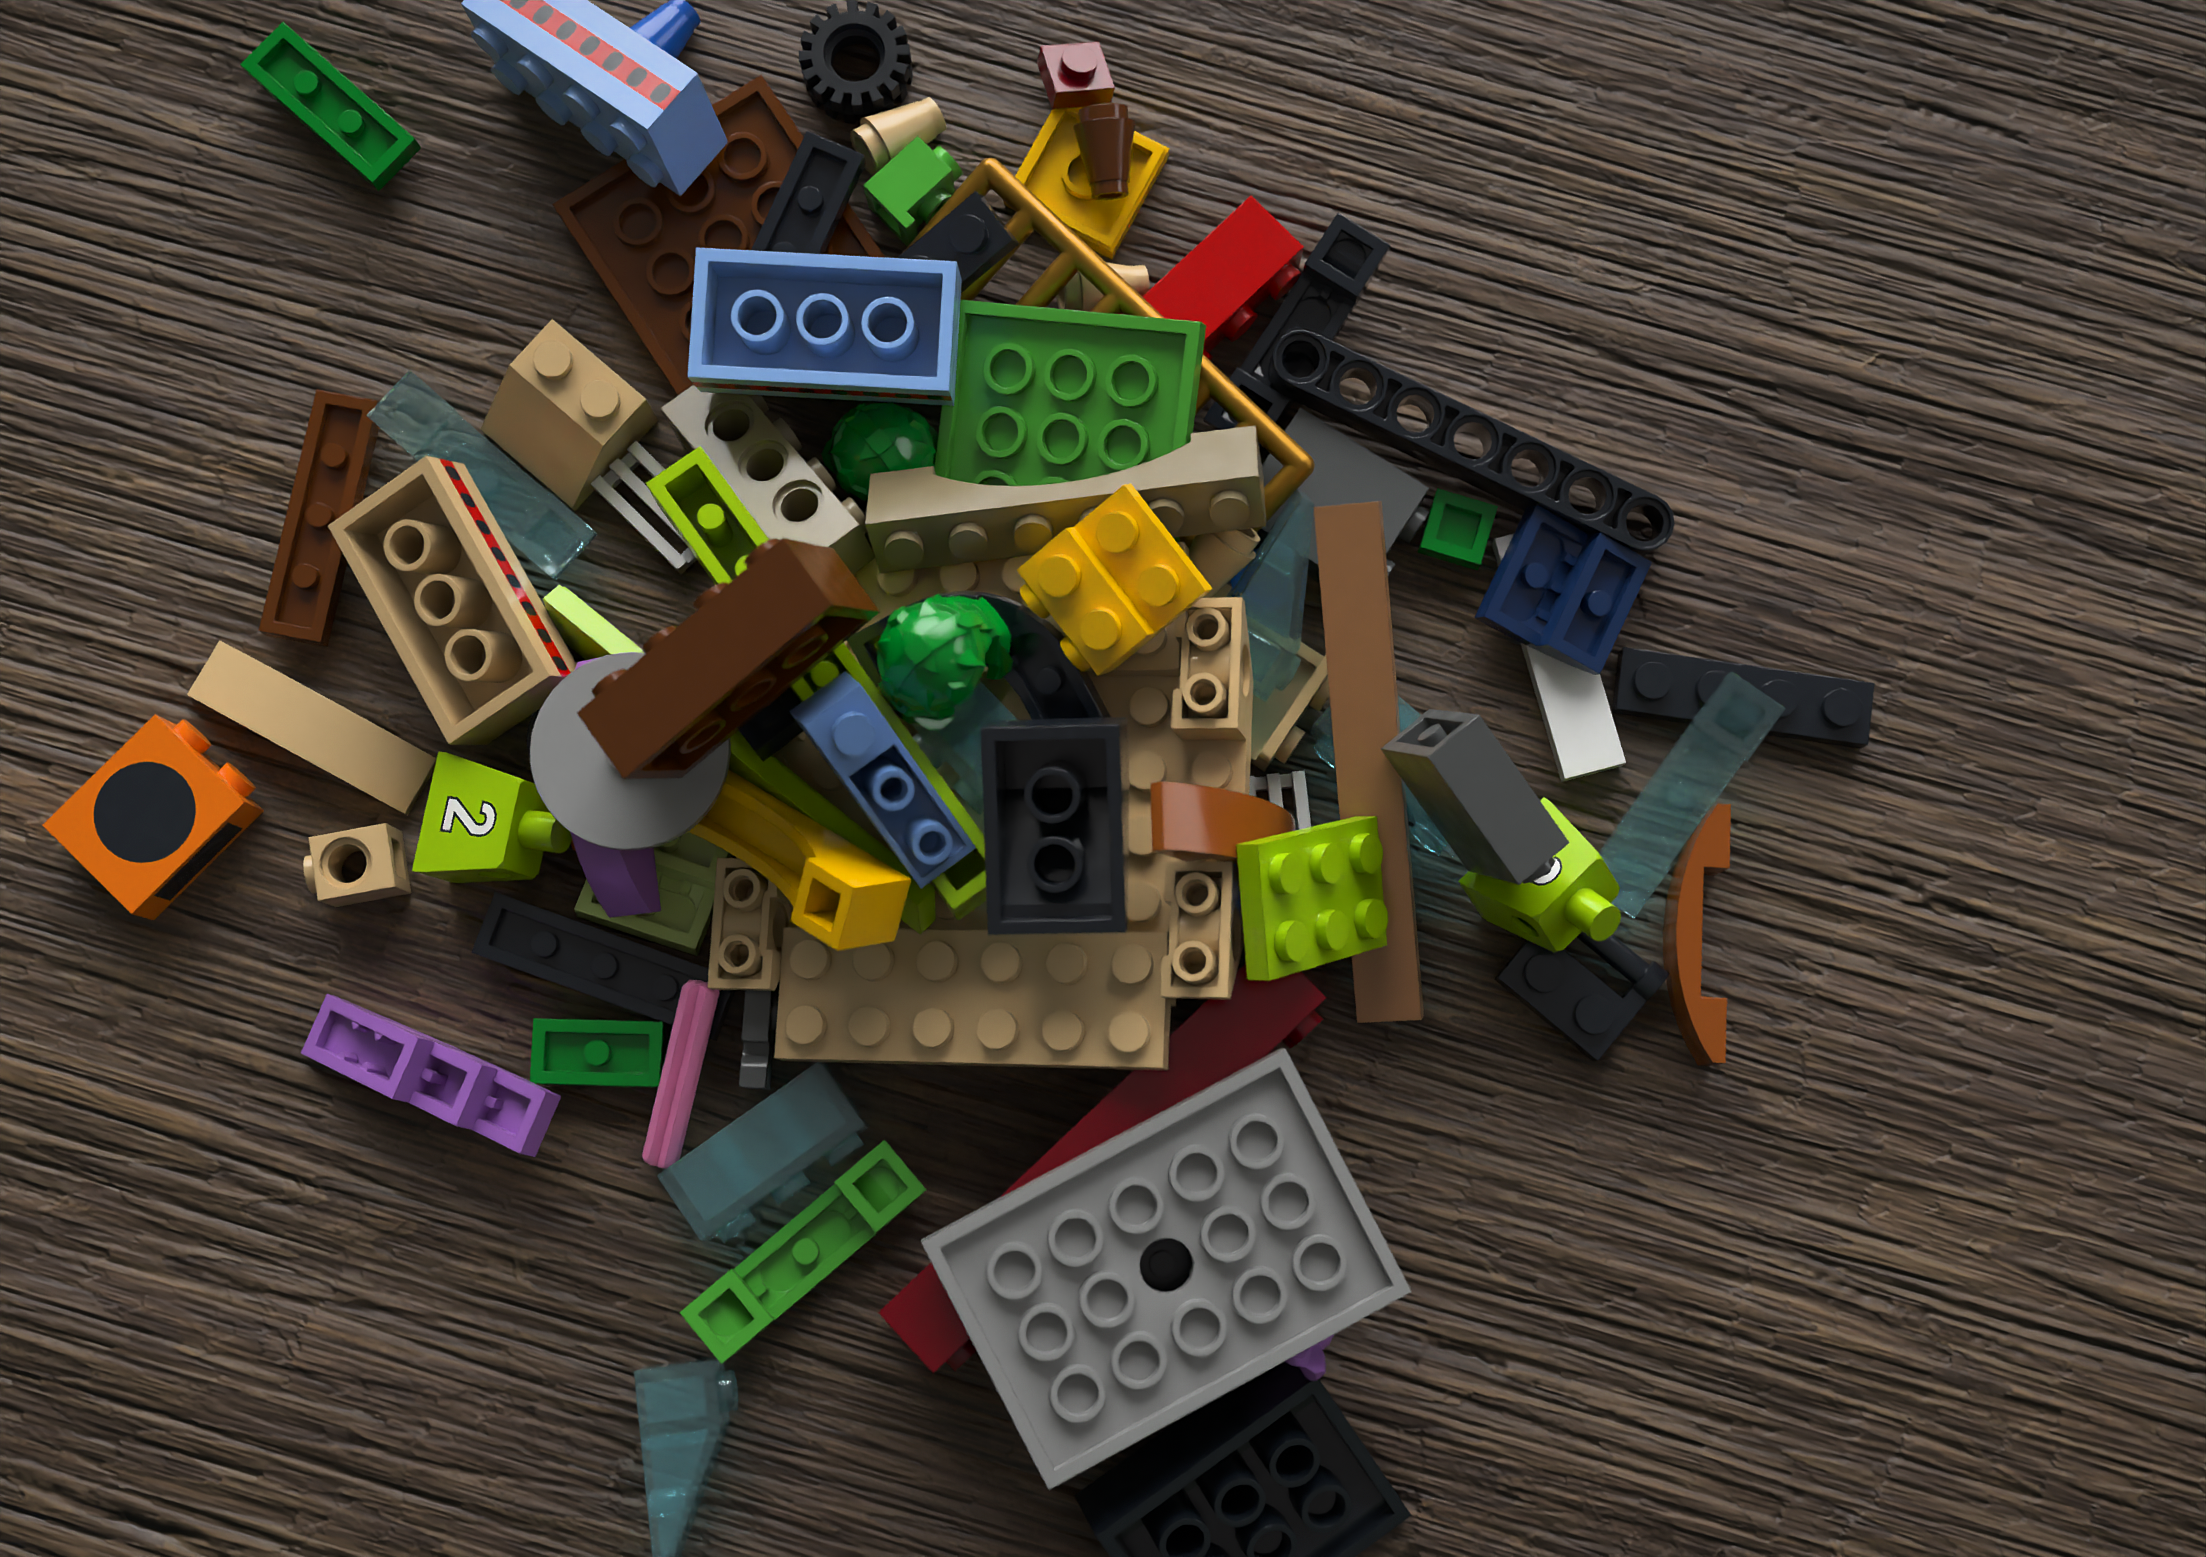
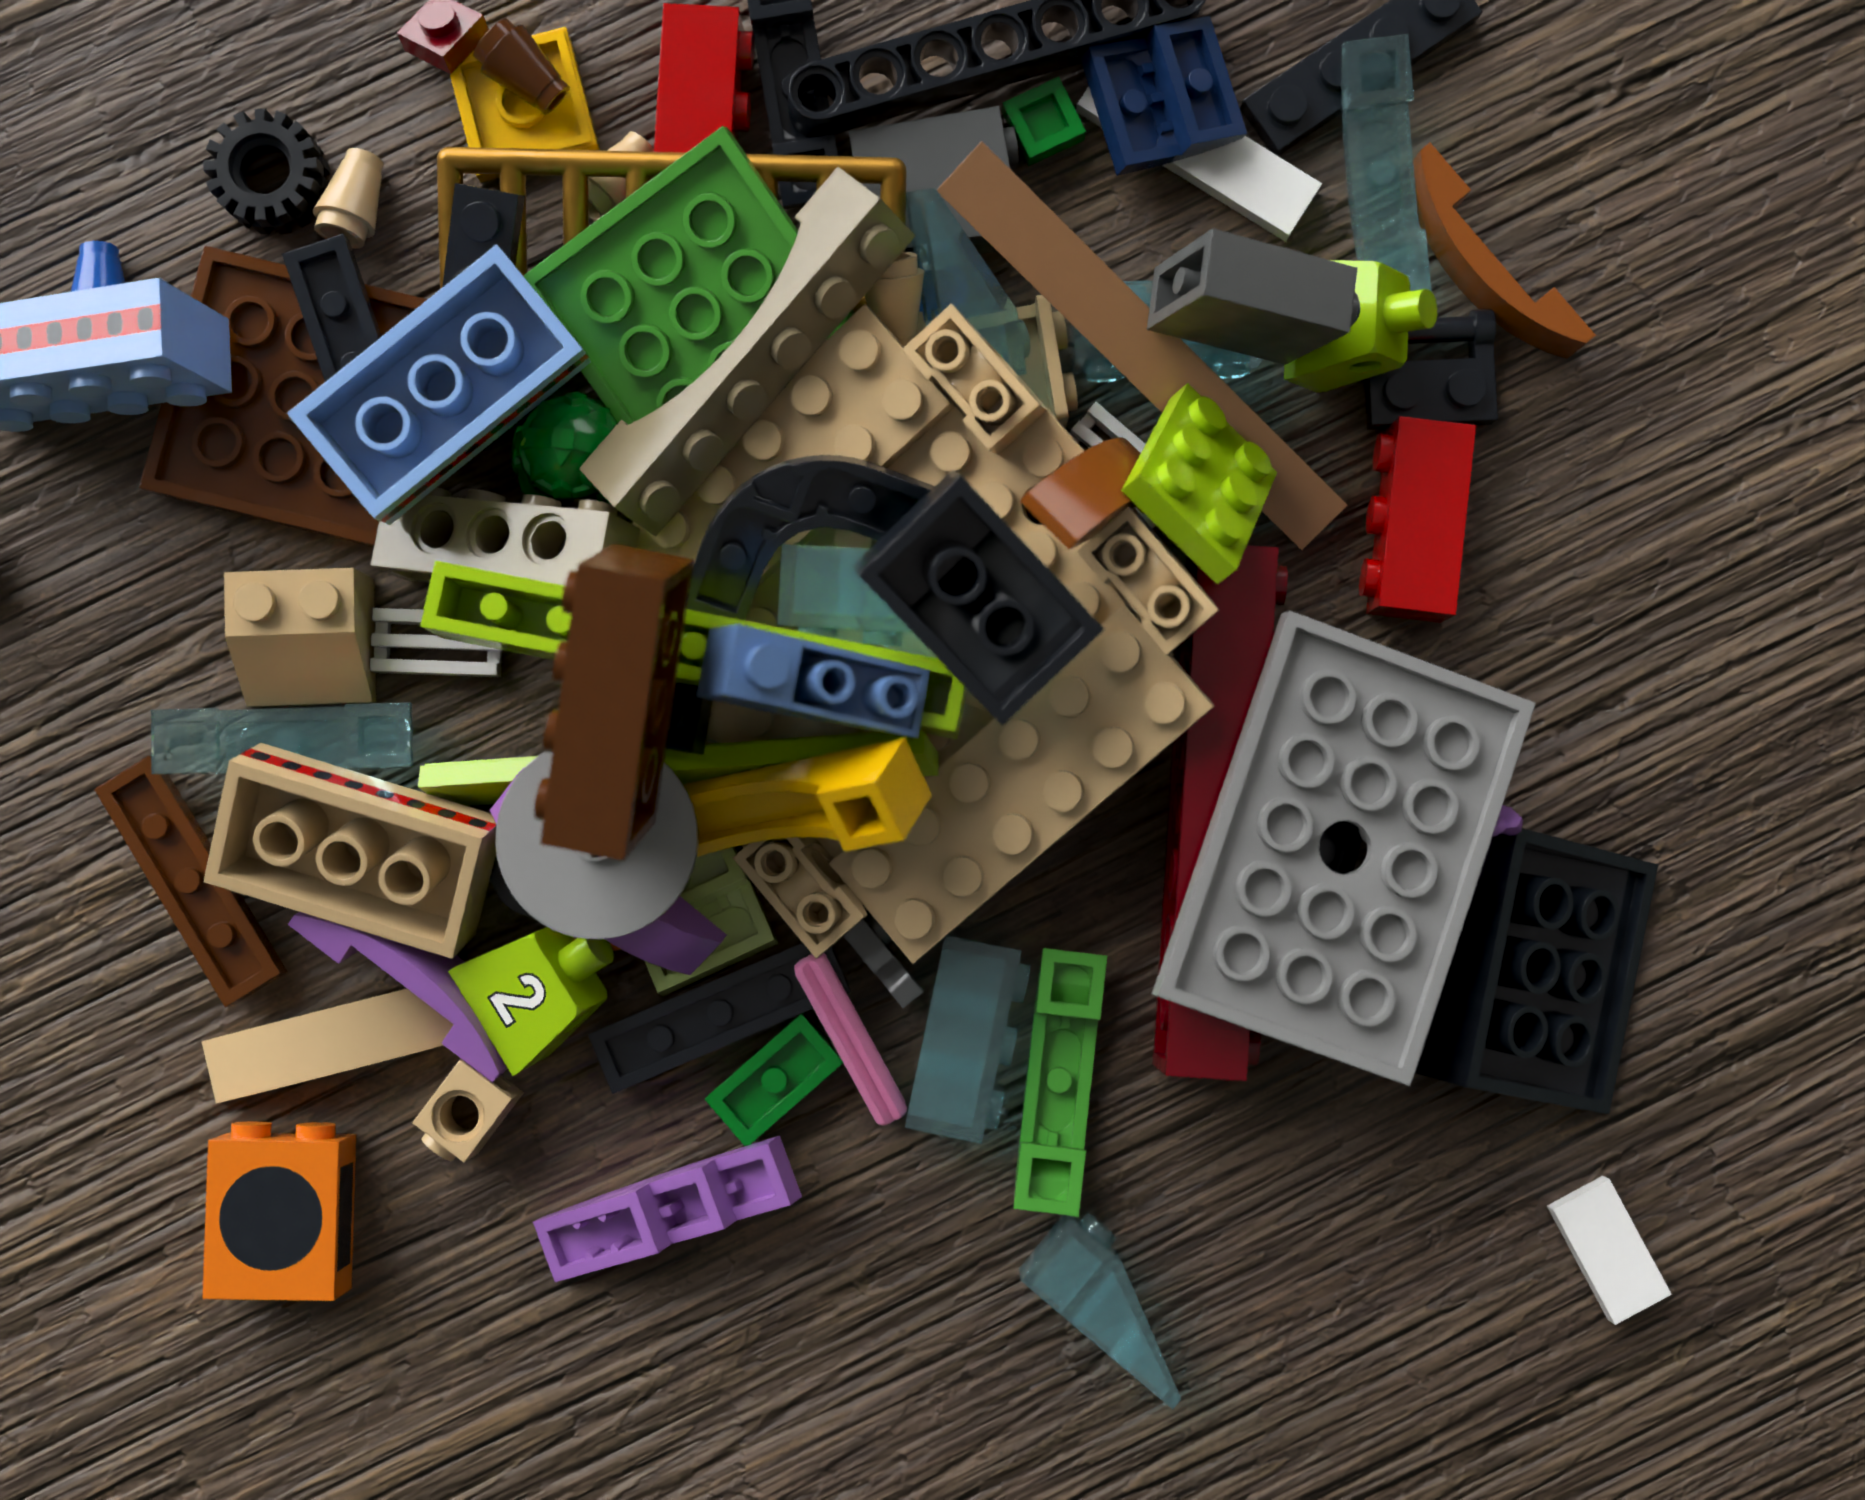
camera: 40 degrees left, 5 degrees up
(417, 738) = (419, 972): none -> medium lavender slope
(912, 188) = (402, 230): bright green brick -> none
(937, 655) = (769, 553): green helmet -> none
(1111, 582) = (843, 379): yellow plate -> none
(1465, 1079) = (1418, 519): none -> red brick

